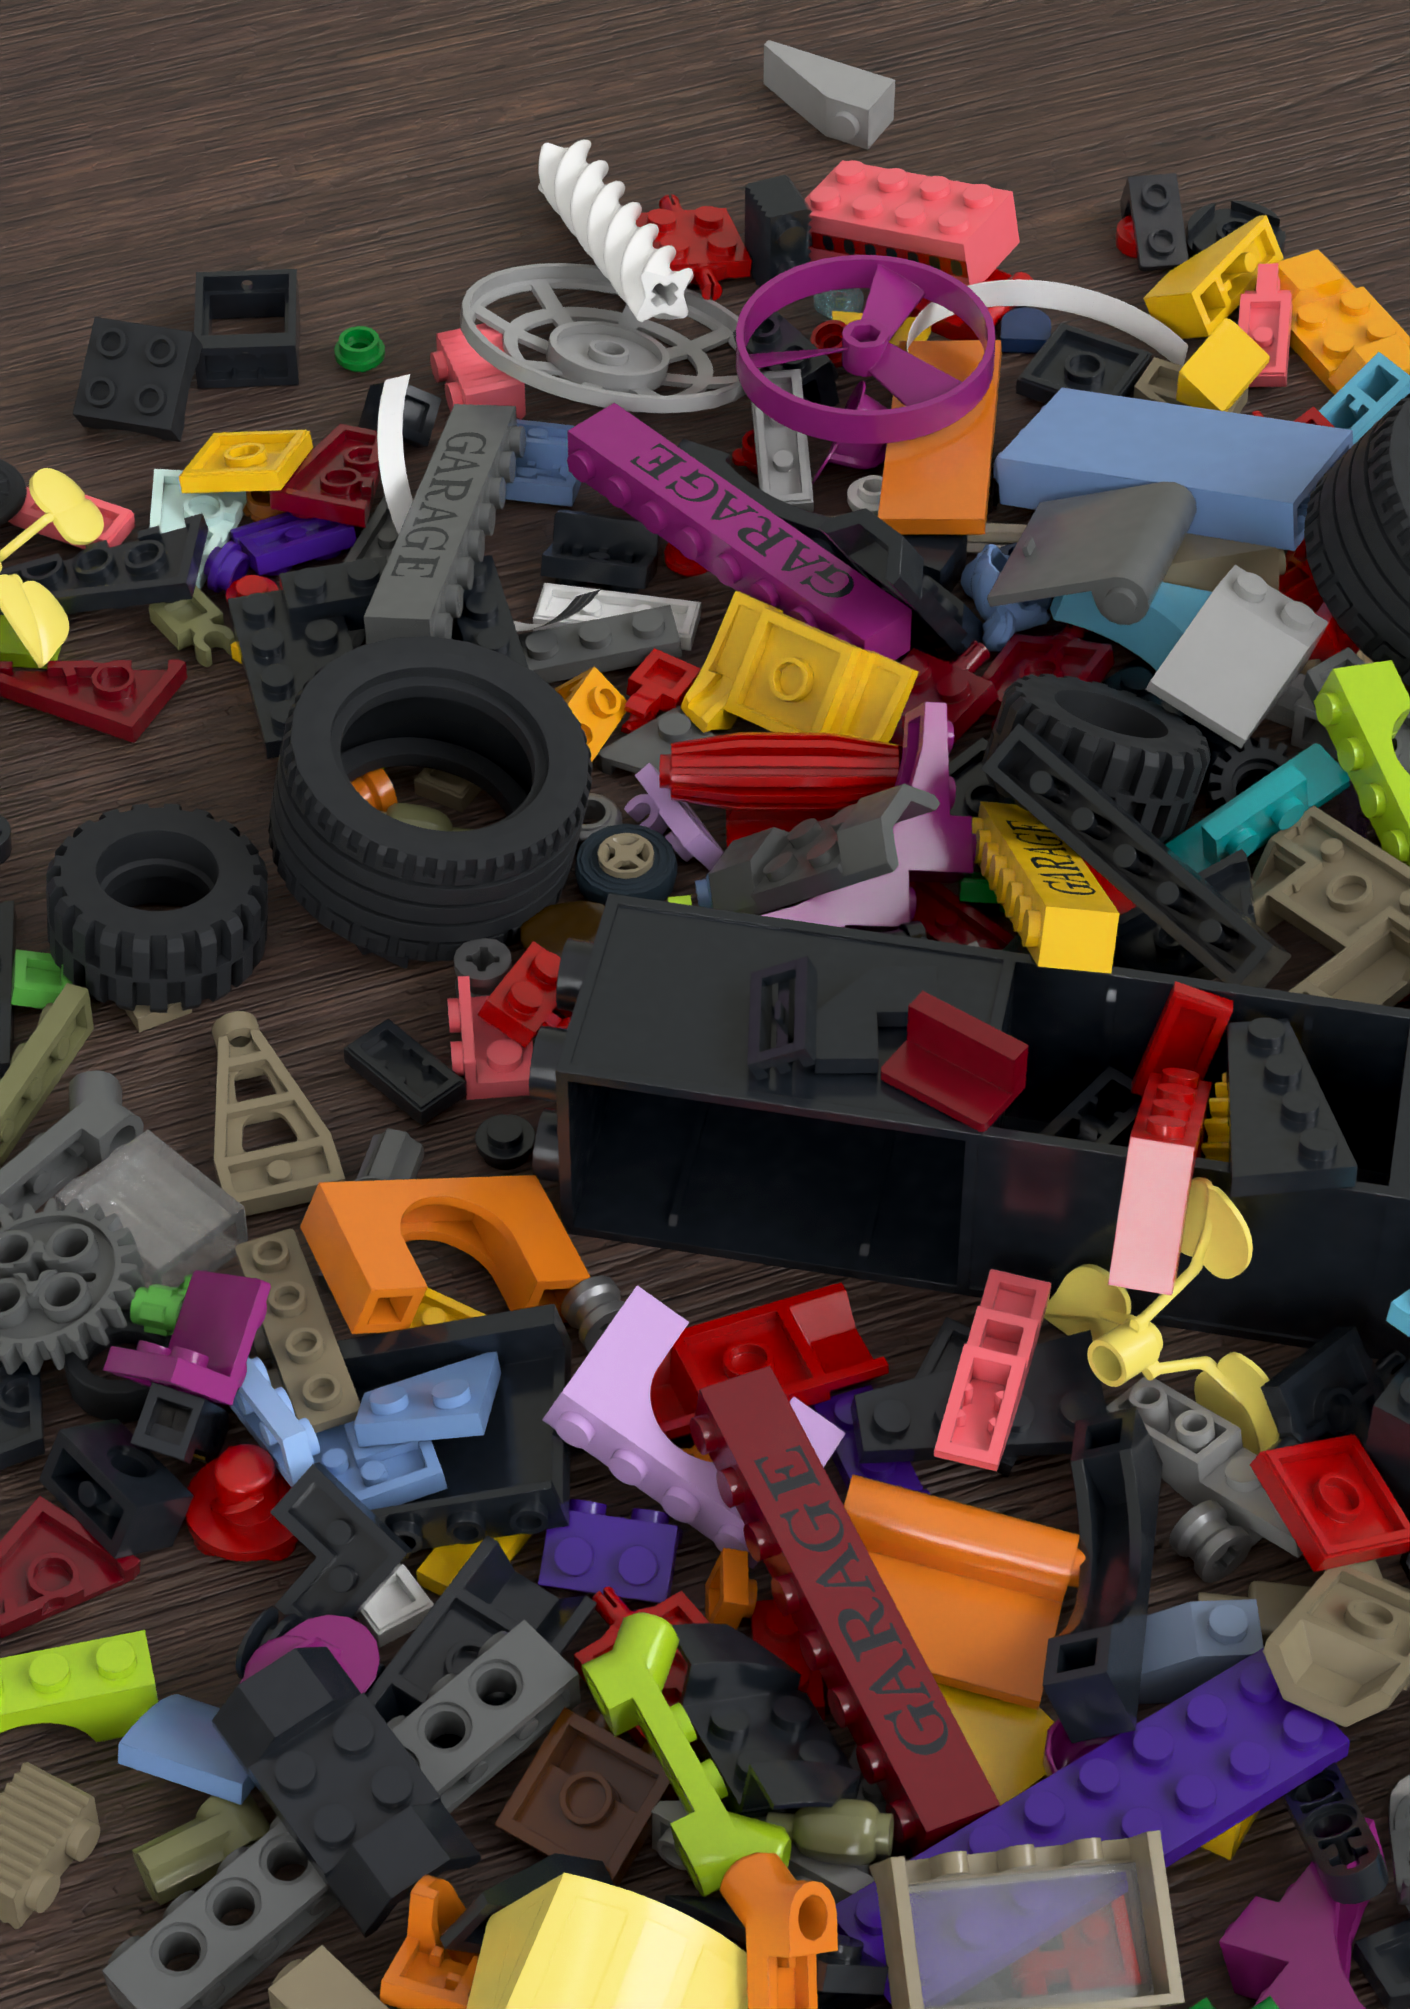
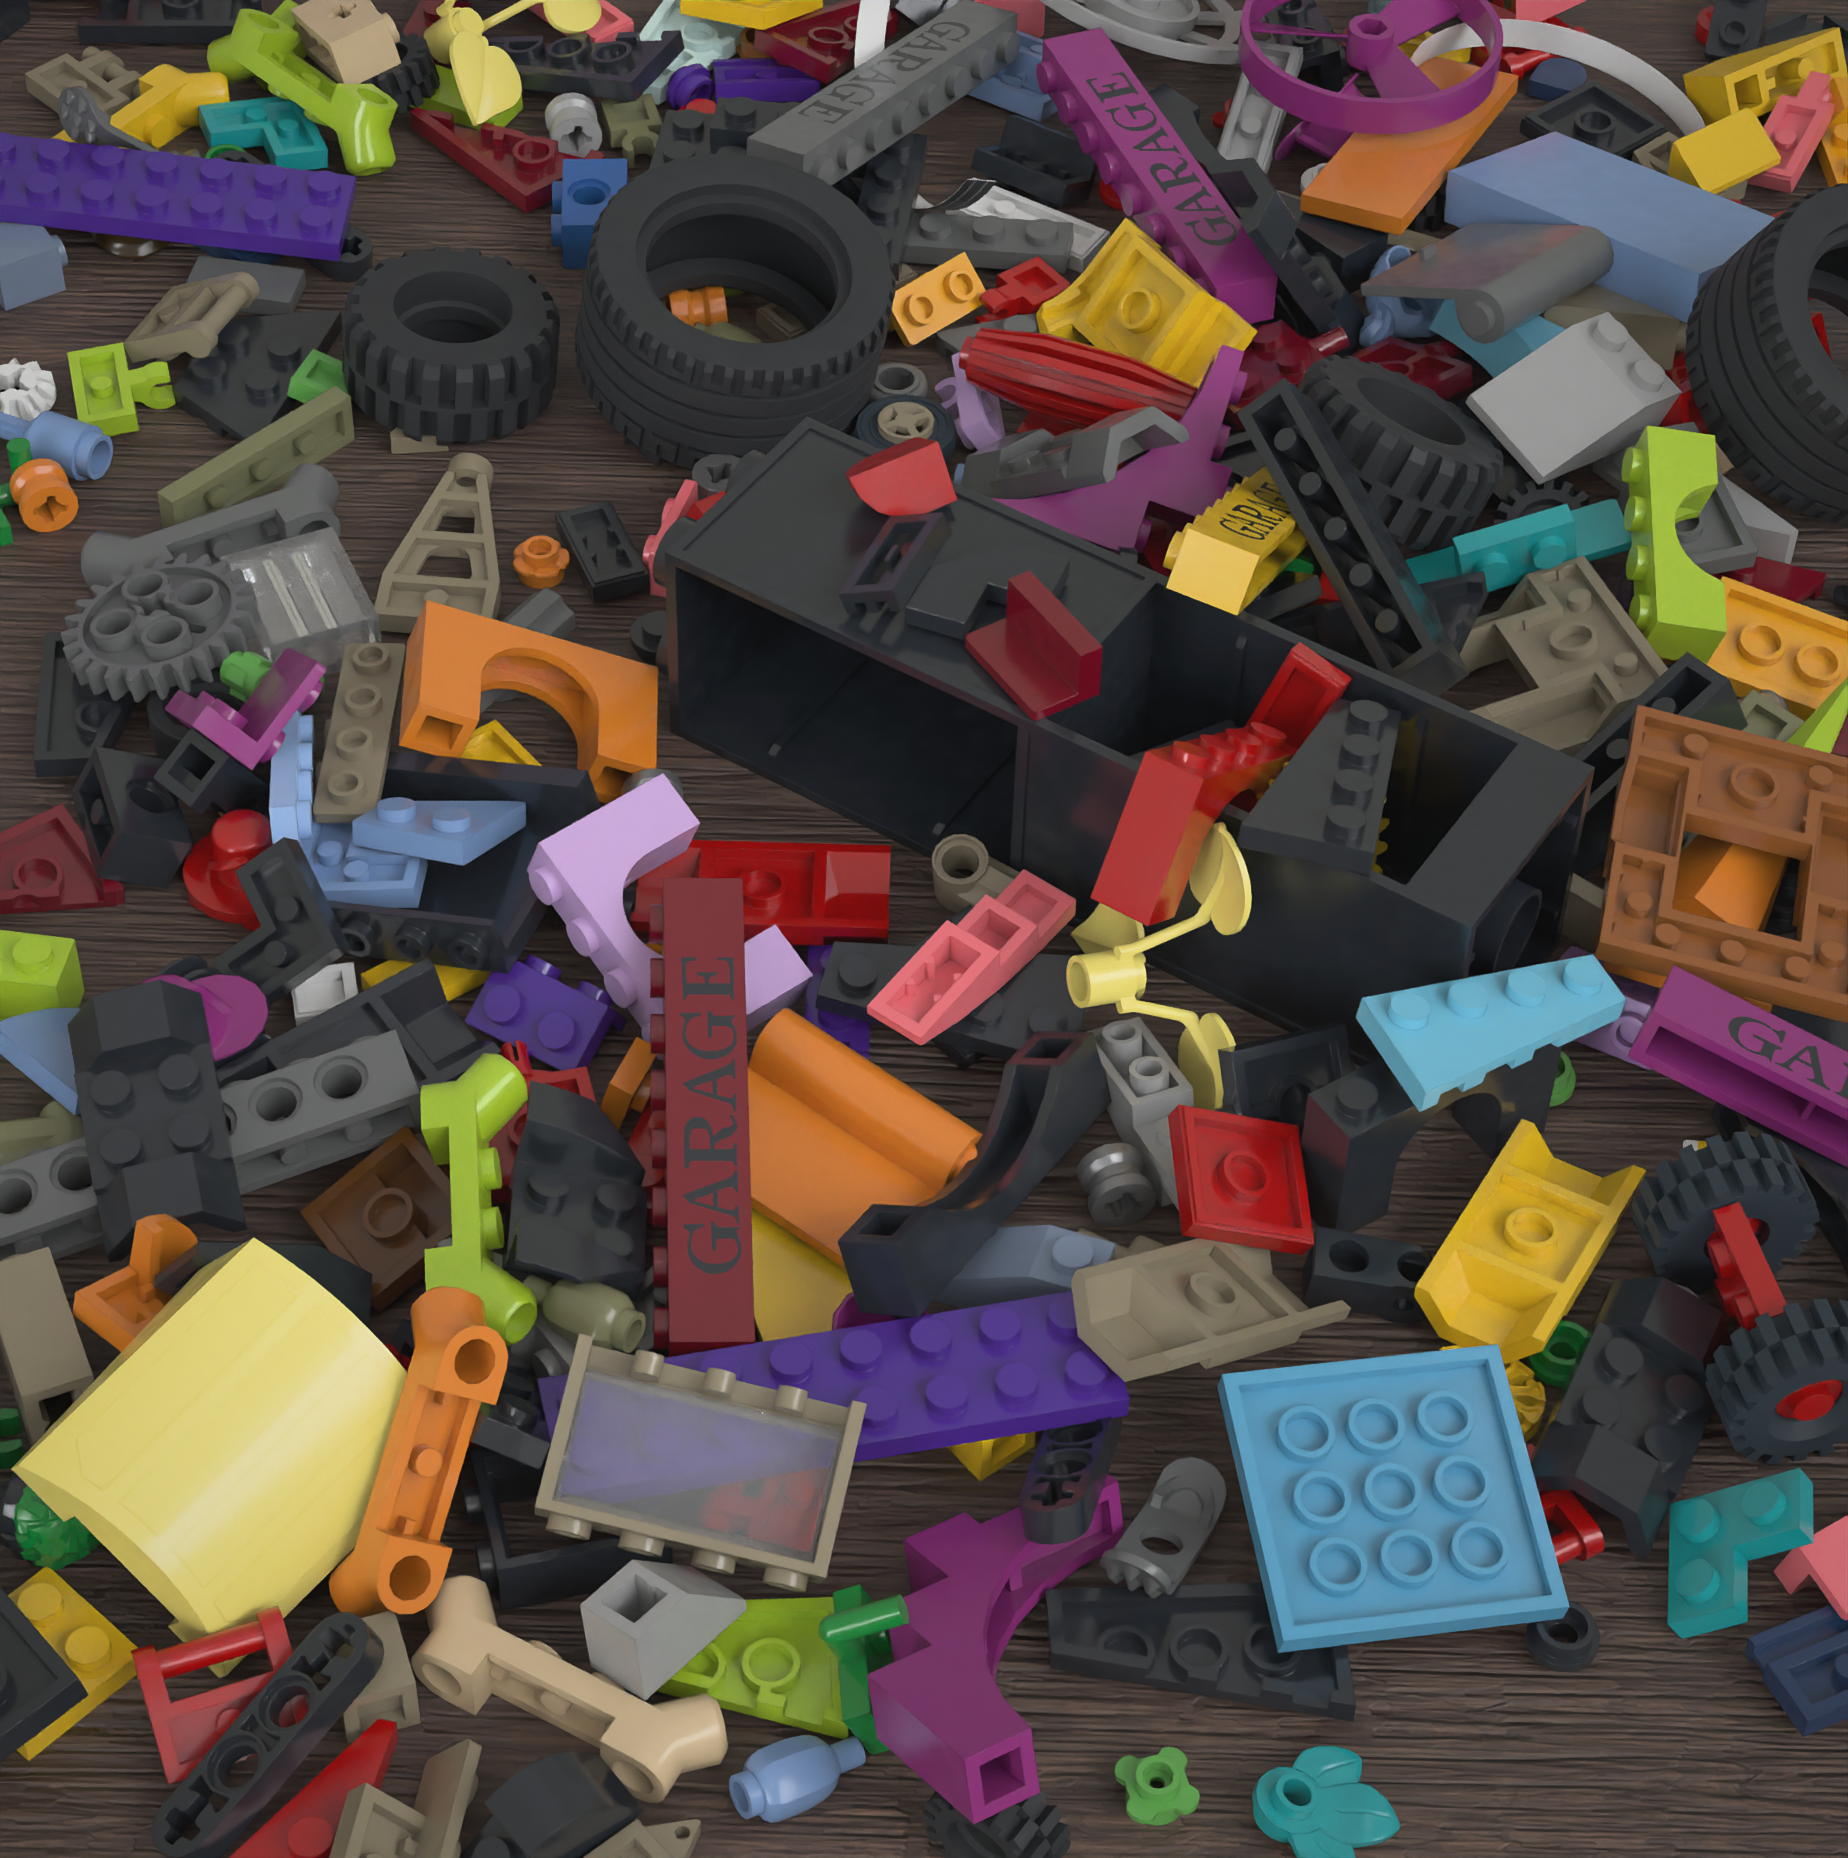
camera: 20 degrees right, 0 degrees up
(135, 638) = (570, 111): none -> light grey wheel
(206, 726) = (578, 202): none -> blue brick
(350, 1100) = (540, 562): none -> orange plate
(743, 929) = (903, 479): none -> brick
(953, 1290) = (967, 852): none -> dark tan piece

